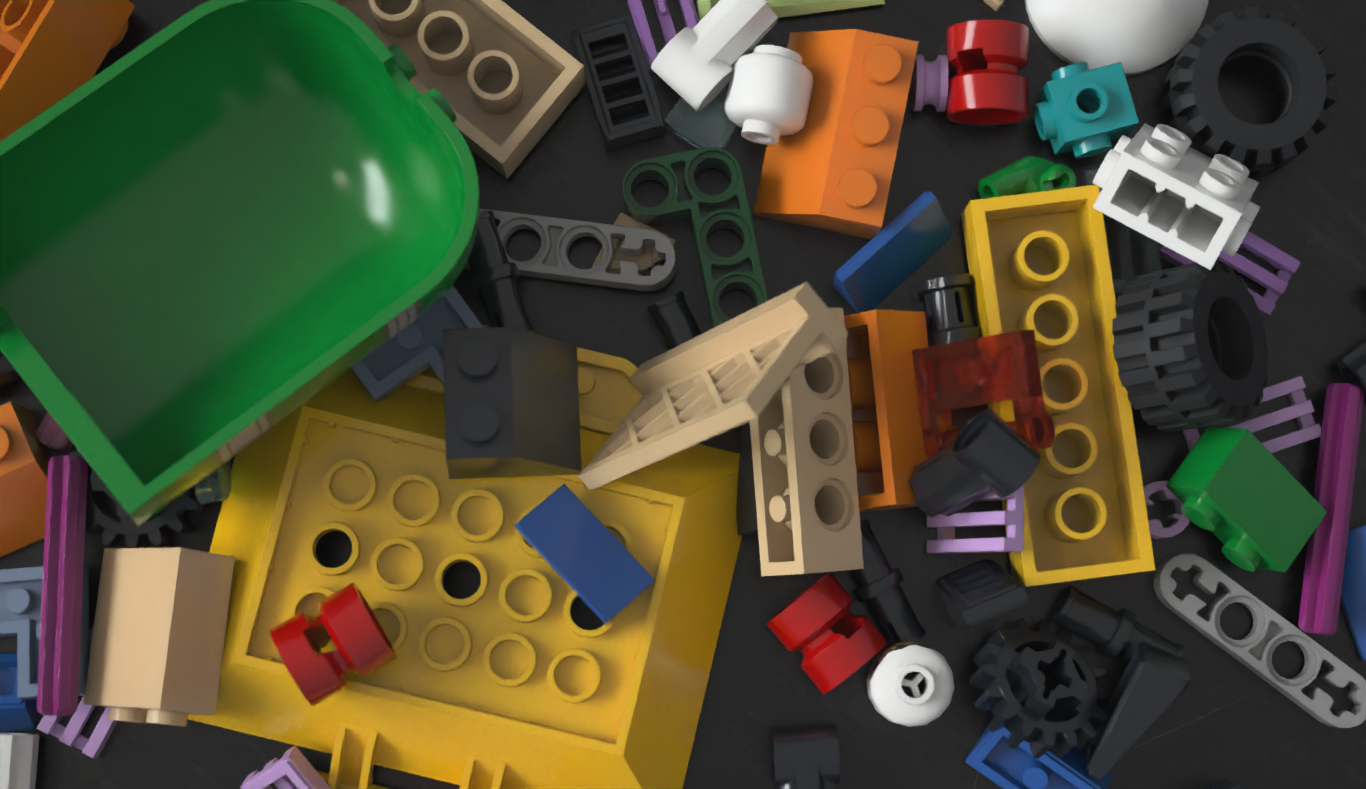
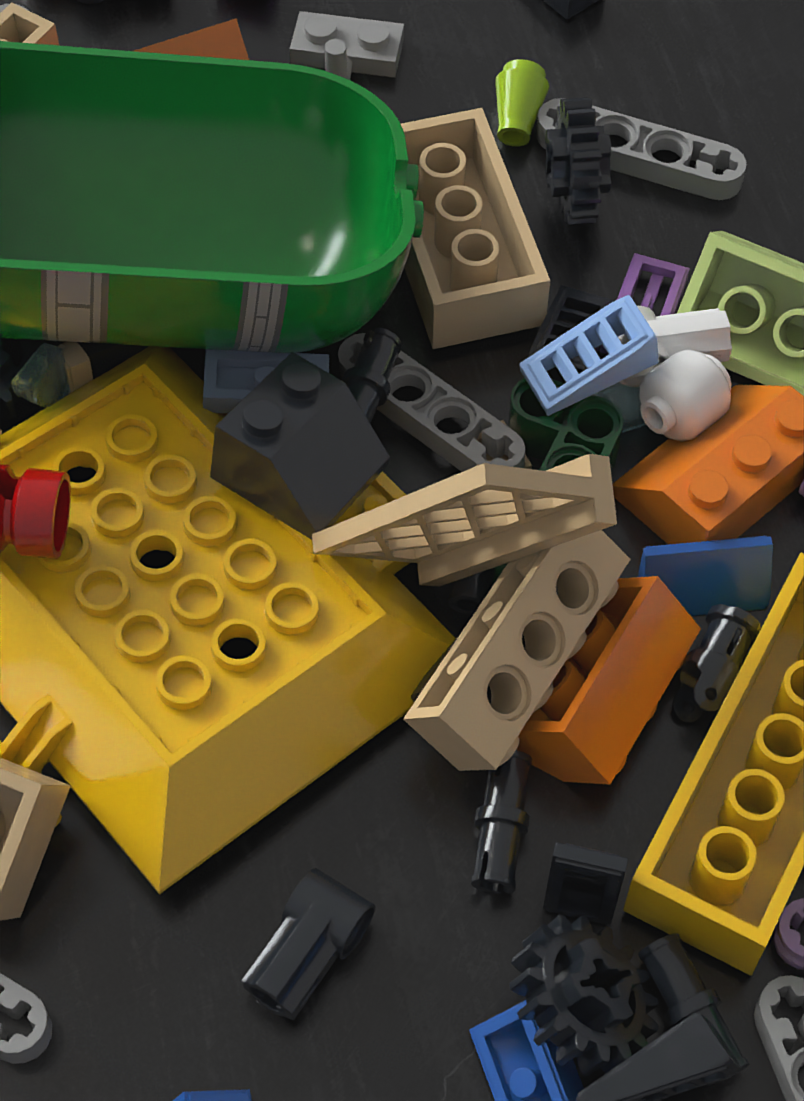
camera: 40 degrees right, 25 degrees down
(584, 554) = (268, 592): blue slope -> none
(699, 78) = (599, 329): none -> light blue slope
(827, 633) = (426, 821): red wheel -> none
(886, 684) = (467, 911): white head -> none
(980, 460) = (663, 733): black piece -> none
(981, 374) = (704, 677): clear red plate -> none
(1012, 518) = (619, 812): lavender tile -> none

